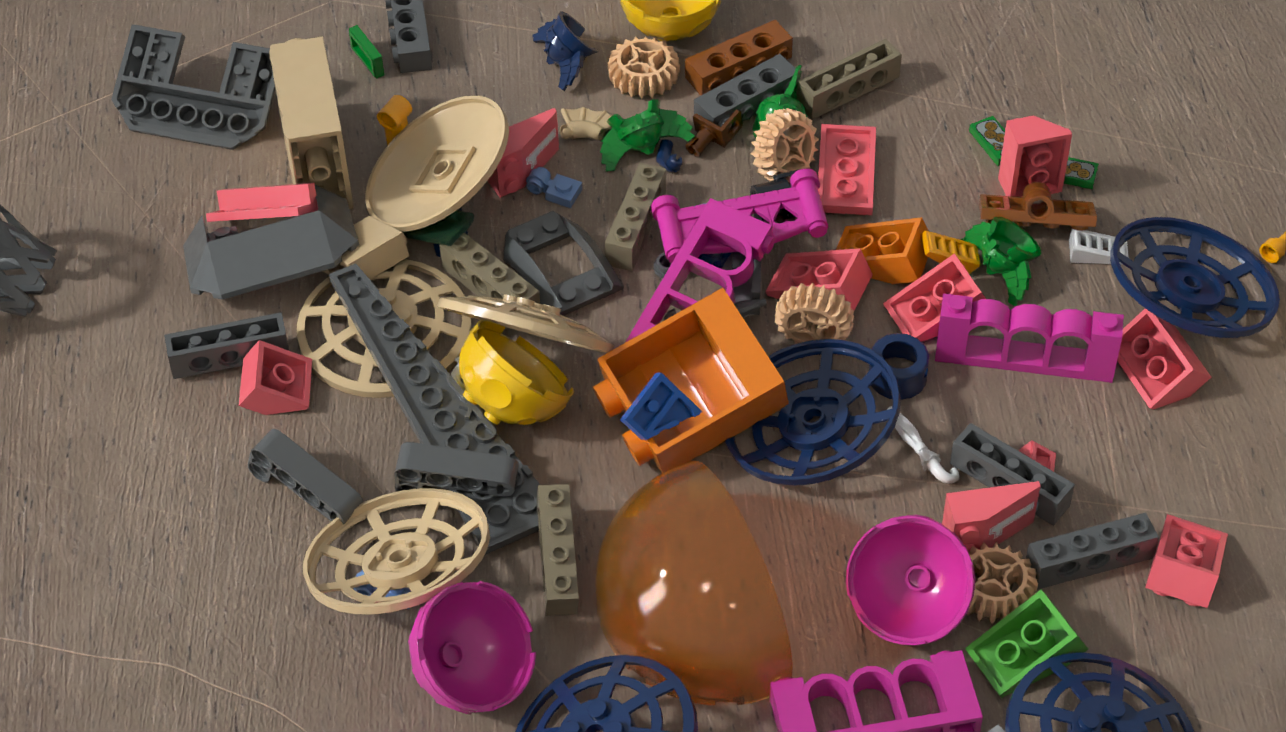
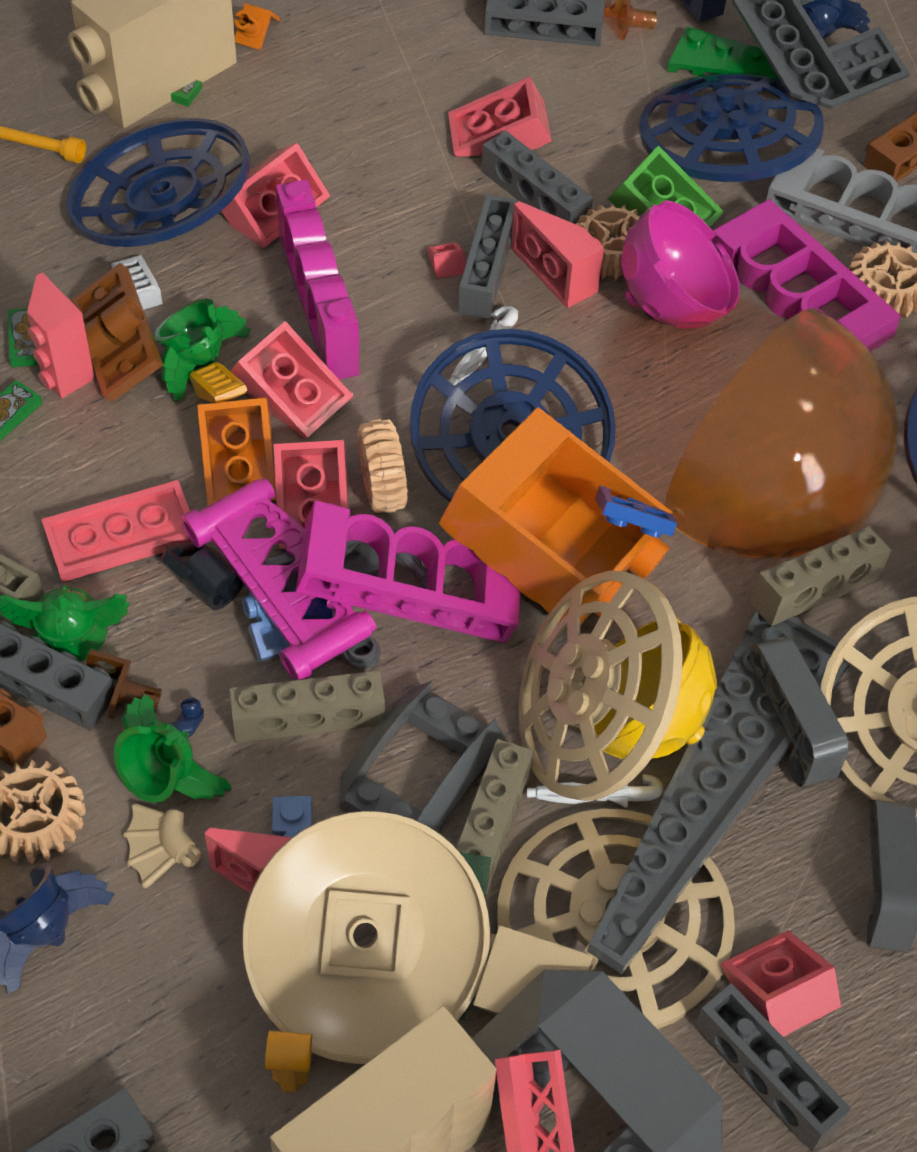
camera: 120 degrees left, 5 degrees up
(784, 143) = (133, 578): light nougat gear -> none
(910, 379) = (382, 398): dark blue piece -> none

